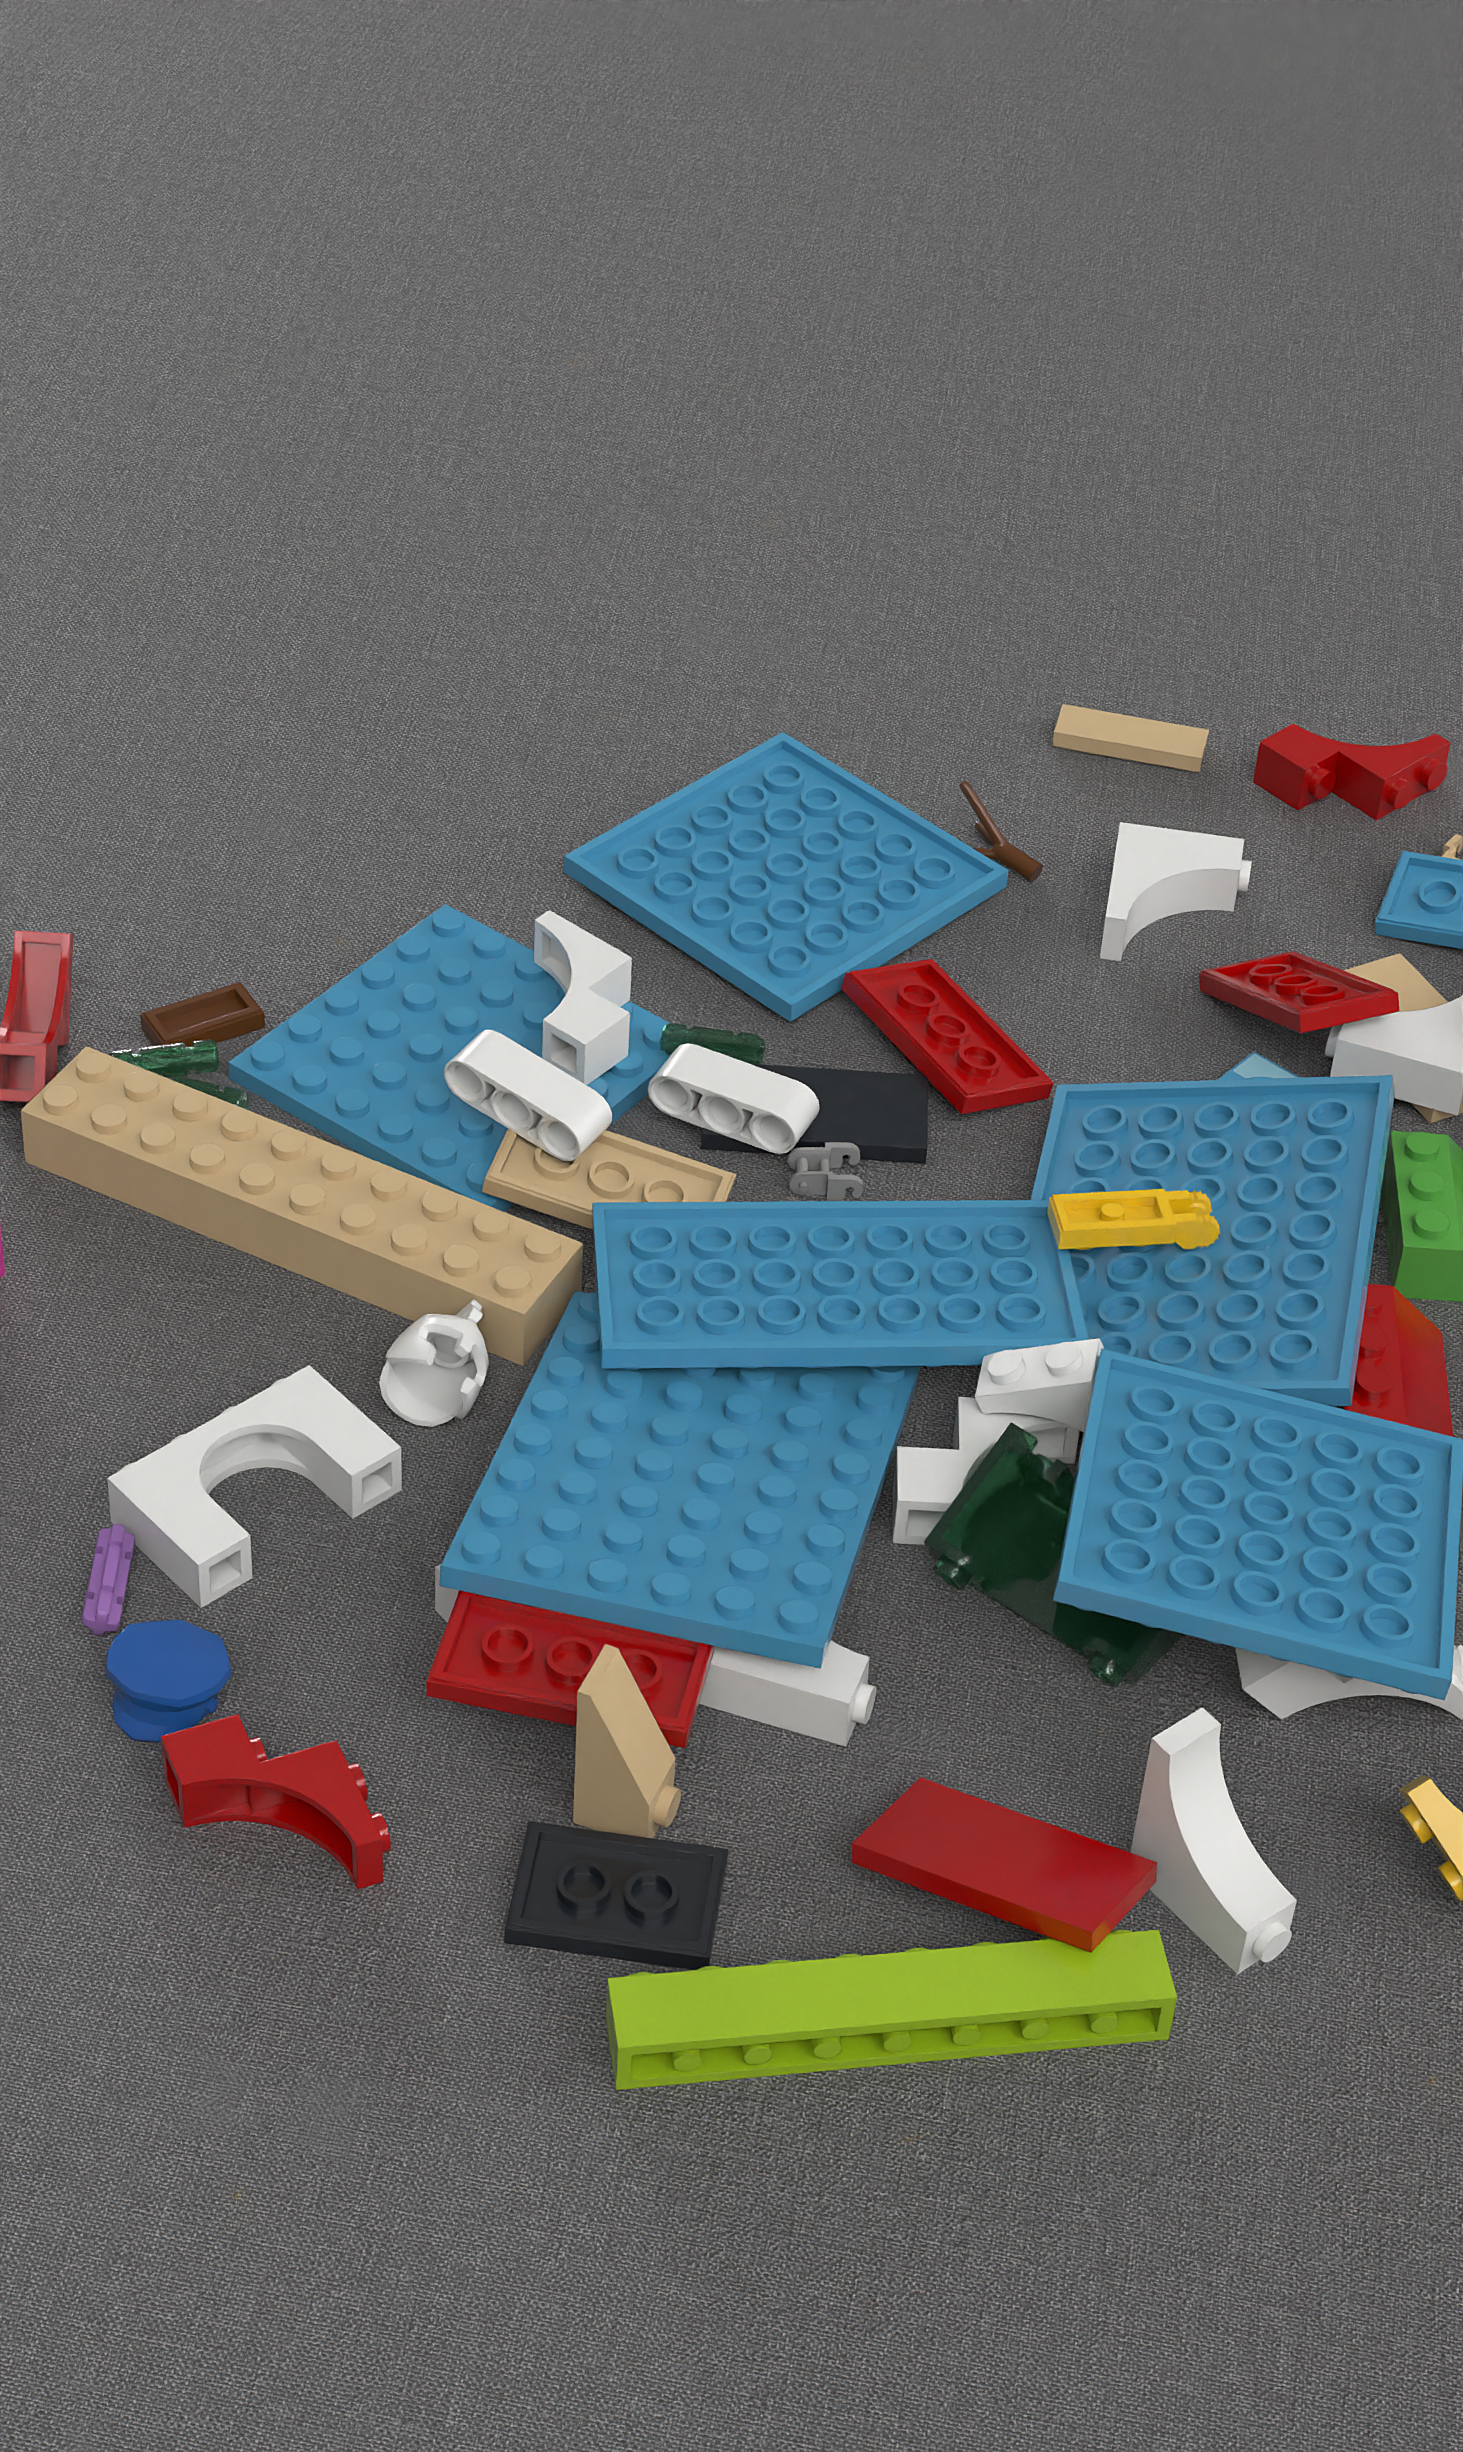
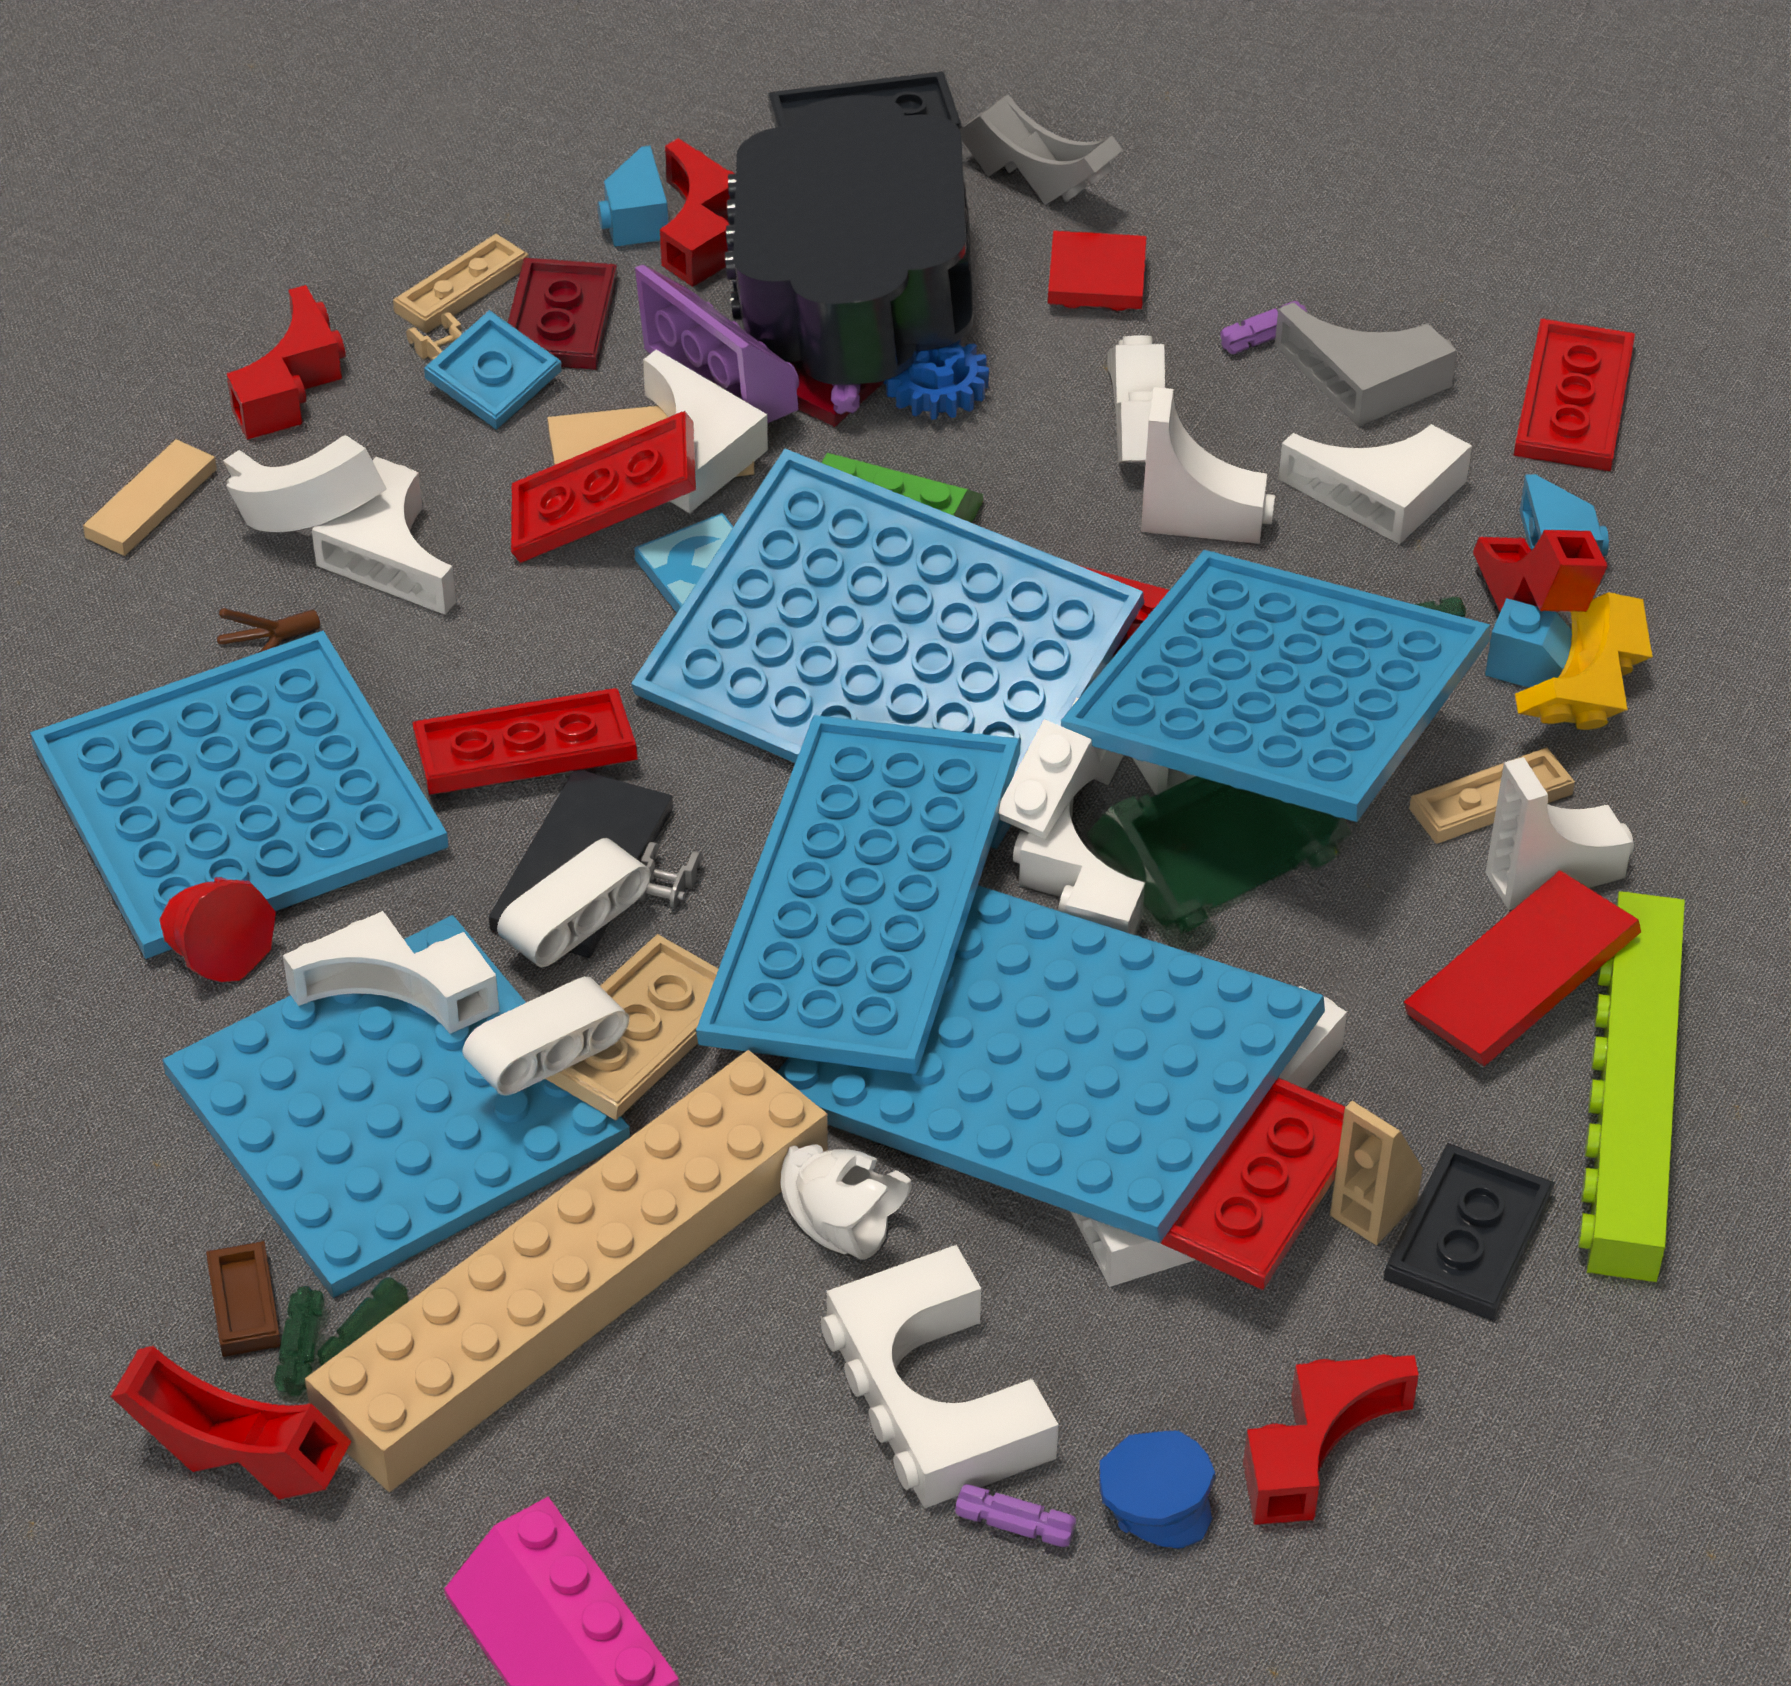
camera: 70 degrees left, 5 degrees up
(594, 887) = (219, 928): none -> red hat
(743, 1046) = (476, 903): clear green axle -> none
(1132, 1219) = (879, 671): yellow hinge -> none
(1165, 799) = (305, 491): none -> white arch
(1302, 1821) = (1472, 800): none -> tan tile

